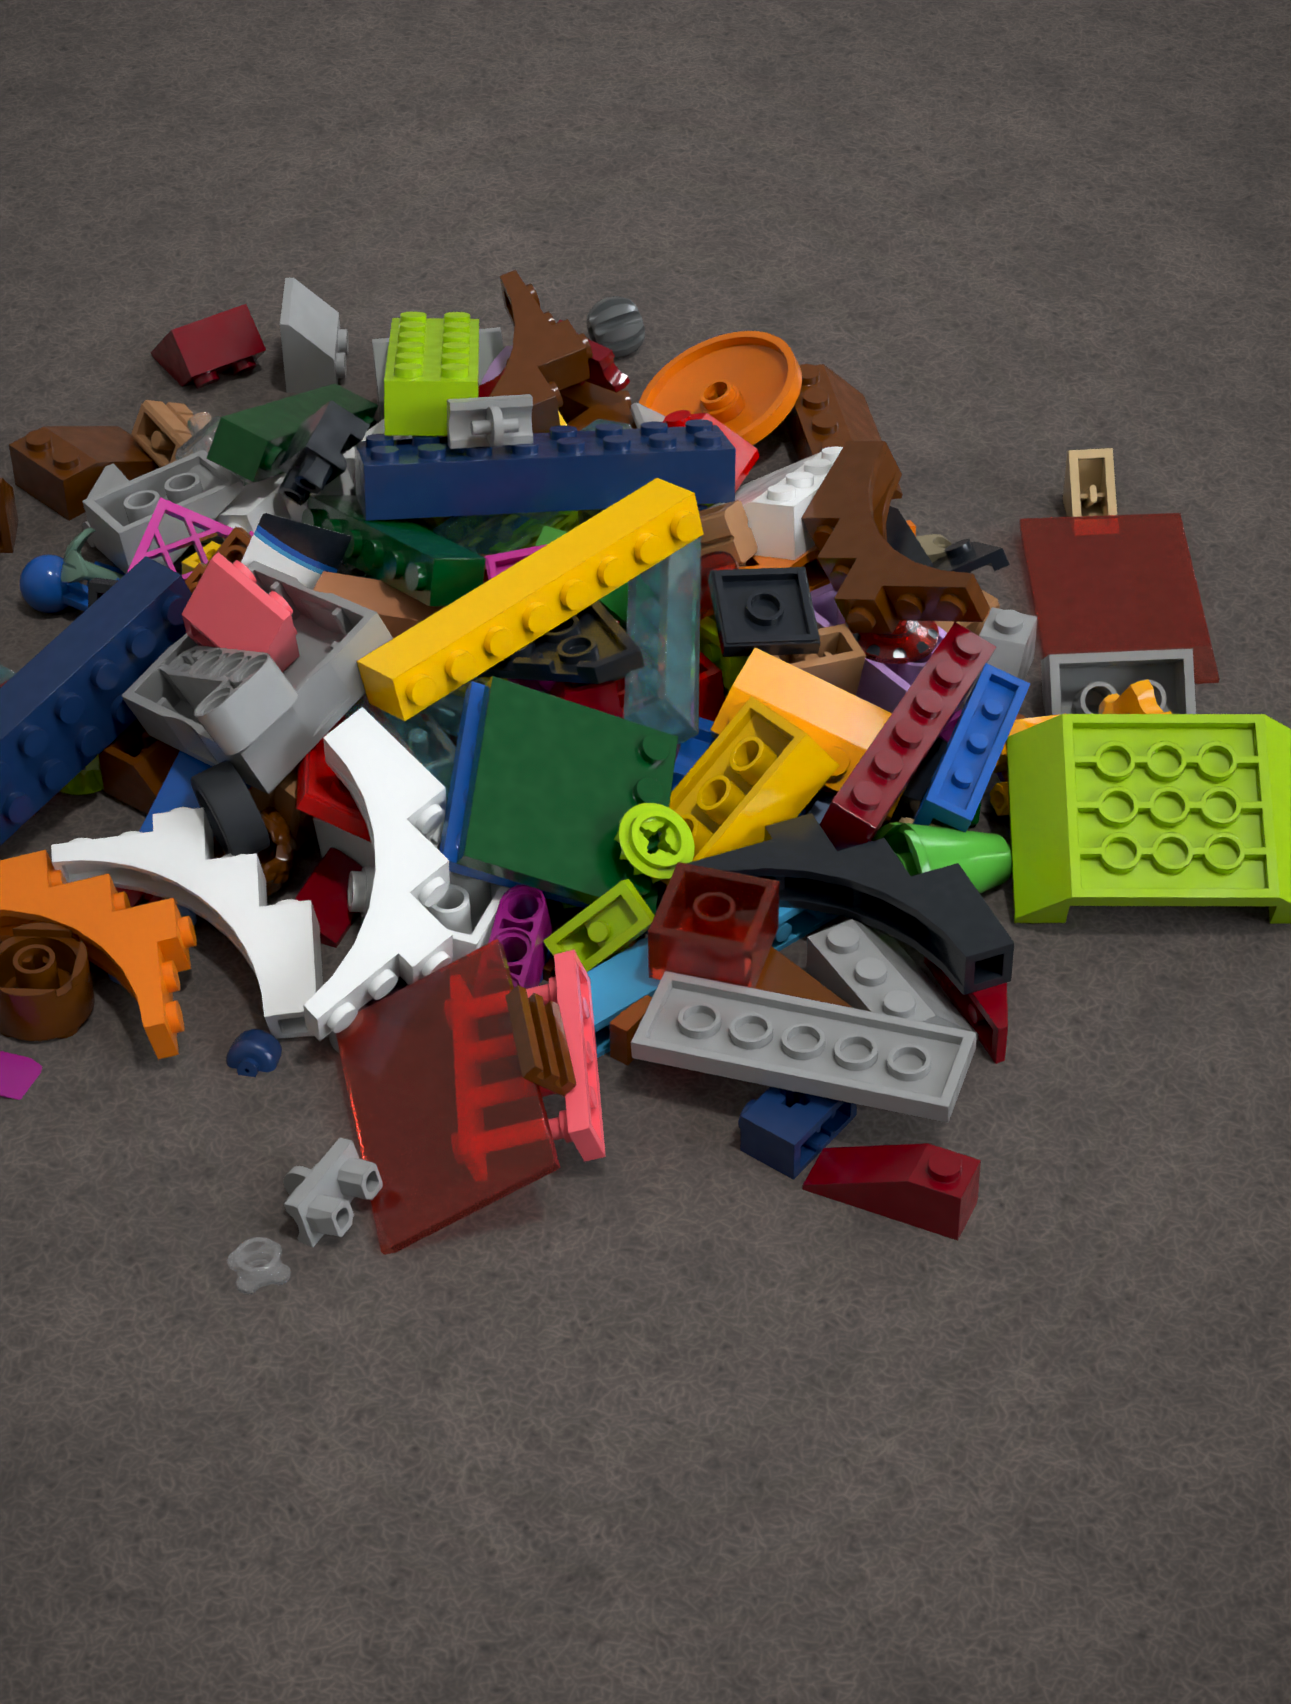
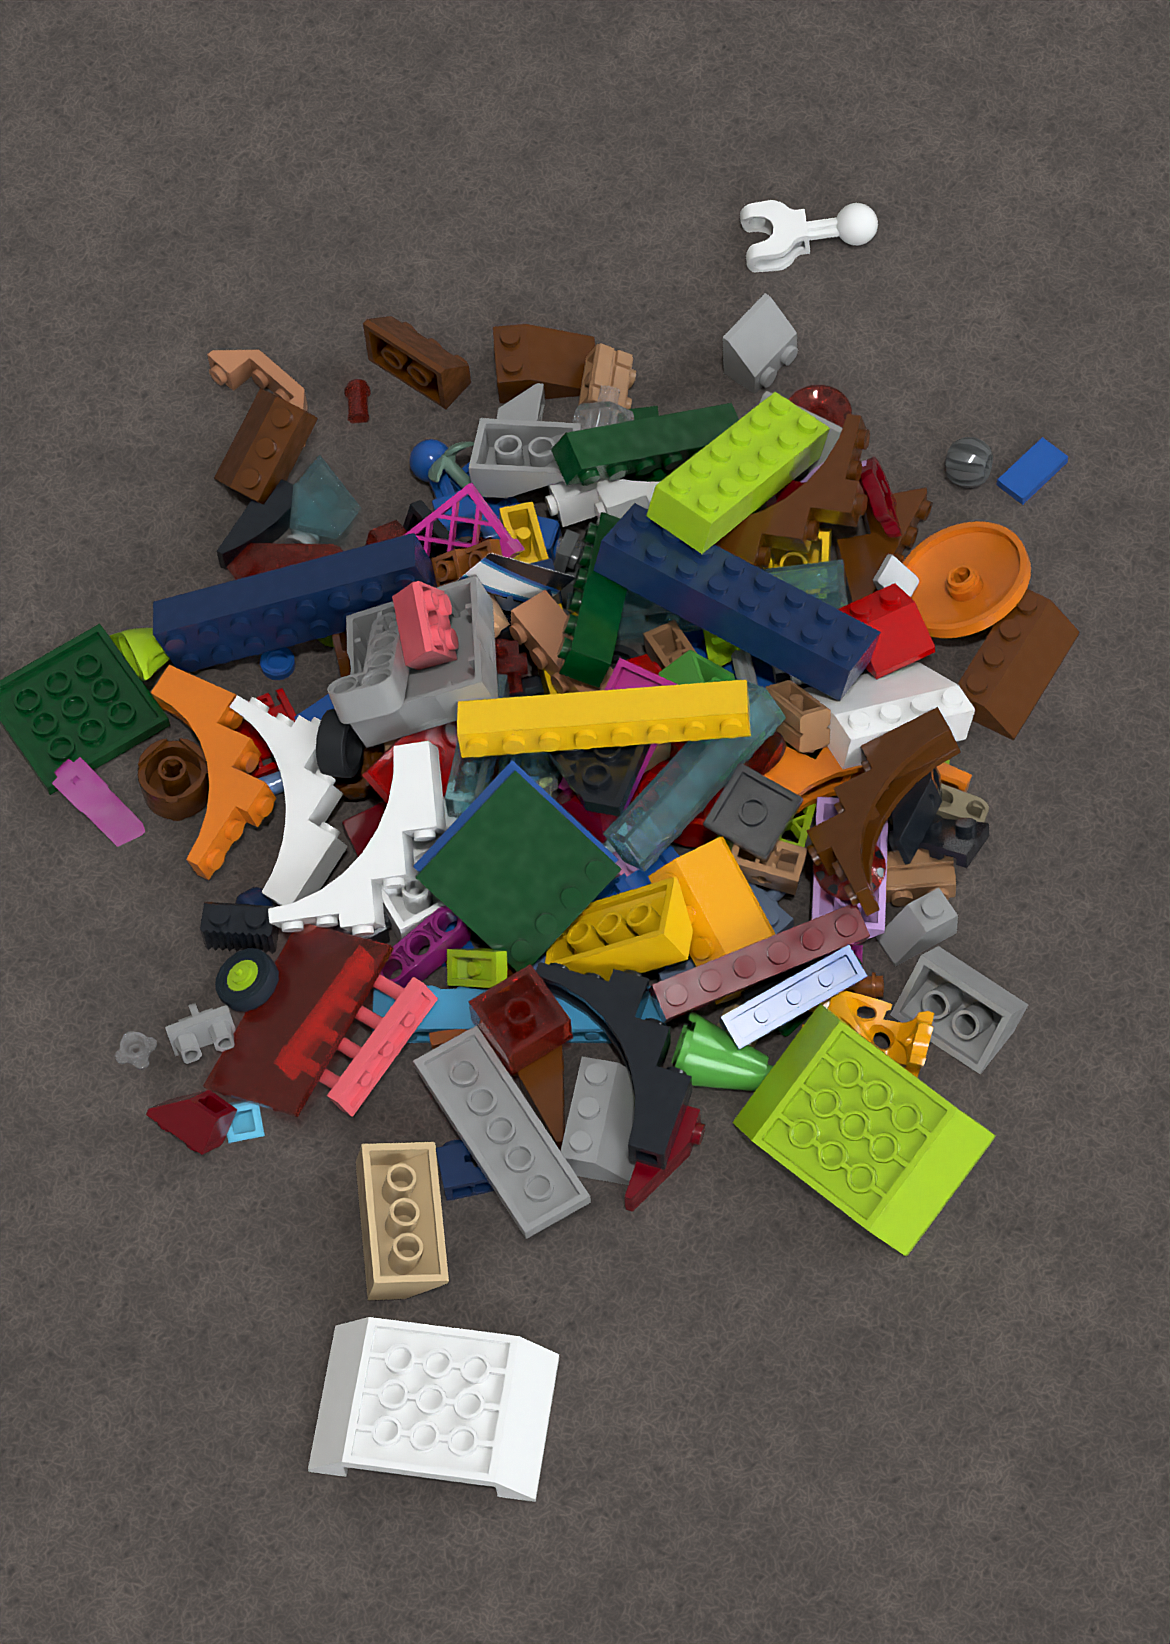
camera: 45 degrees right, 20 degrees up
(45, 831) = (277, 663): none -> blue tile
(211, 346) = (699, 307): dark red slope -> none
(243, 264) = (791, 233): none -> white piece
(268, 1070) = (238, 927): none -> black brick
(318, 451) = (604, 495): black hips -> none
(330, 1106) = (247, 980): none -> black wheel
(417, 1270) = (196, 1119): none -> dark red slope
(468, 1251) = (246, 1123): none -> medium azure slope
(489, 421) = (700, 557): light grey hips -> none
(540, 1041) = (370, 1006): reddish brown tile -> none
(674, 846) = (537, 951): lime gear -> none
(677, 314) = (1032, 471): none -> blue tile
(775, 1211) = (401, 1219): none -> tan slope
(901, 1182) = (485, 1249): dark red slope -> none
(1009, 1363) = (435, 1405): none -> white slope
(1089, 483) = (1117, 833): tan slope -> none
(1116, 586) = (1055, 923): clear red piece -> none

